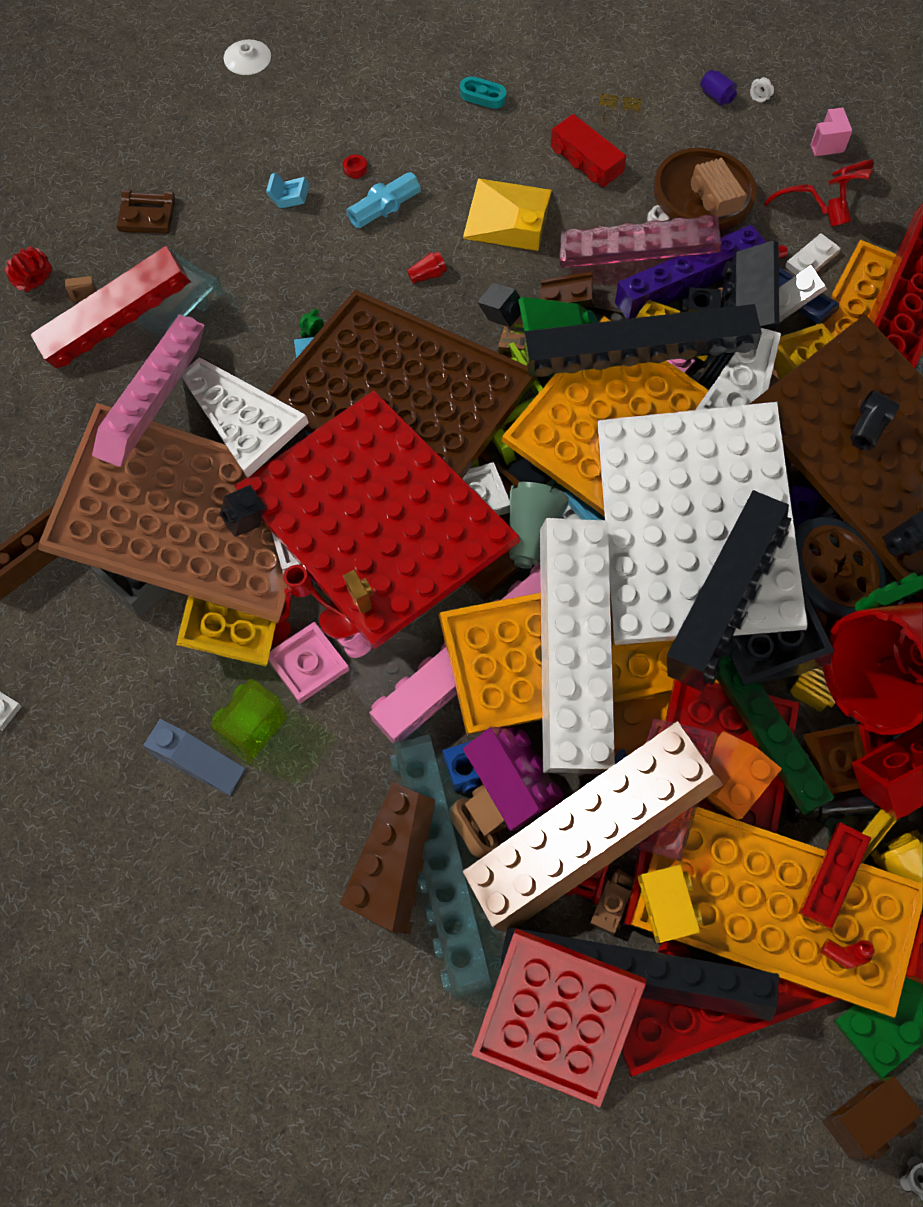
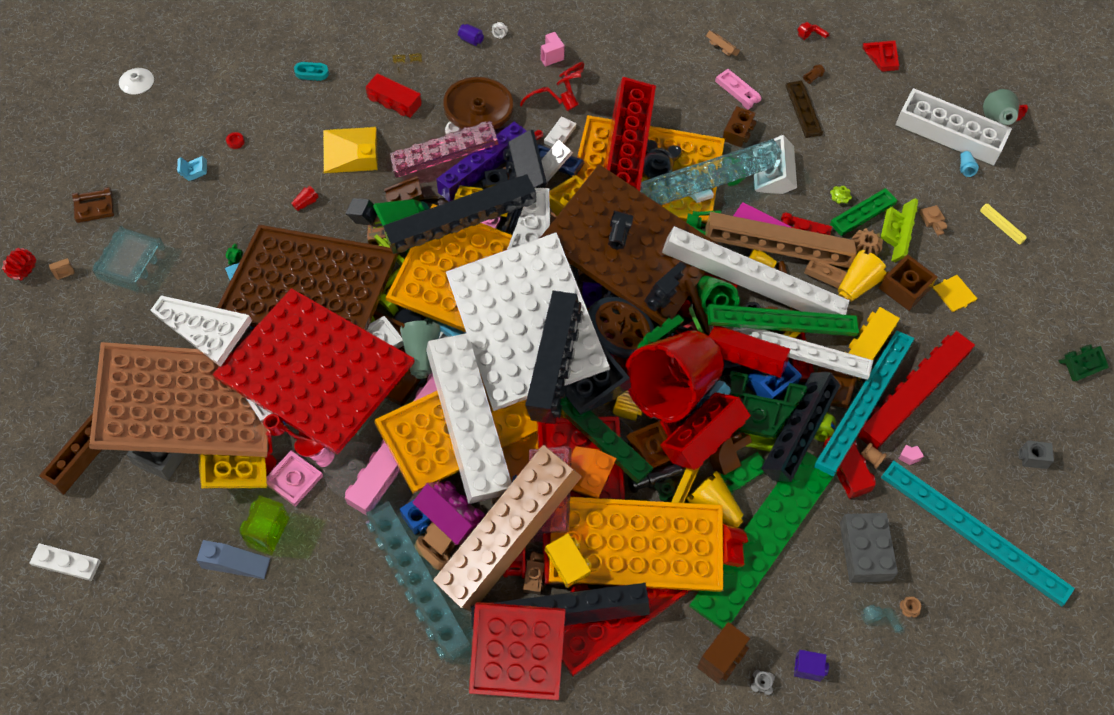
camera: 20 degrees left, 5 degrees down
(111, 308) = (88, 277): brick -> none
(147, 391) = (134, 325): bright pink brick -> none
(242, 510) = (222, 389): black brick -> none
(359, 590) = (317, 418): pearl gold plate -> none
(383, 200) = (261, 159): medium azure piece -> none
(391, 860) = (384, 585): reddish brown wedge -> none
(718, 188) = (486, 102): medium nougat brick -> none
(834, 875) = (665, 515): red tile -> none
(849, 956) = (685, 561): red arm -> none

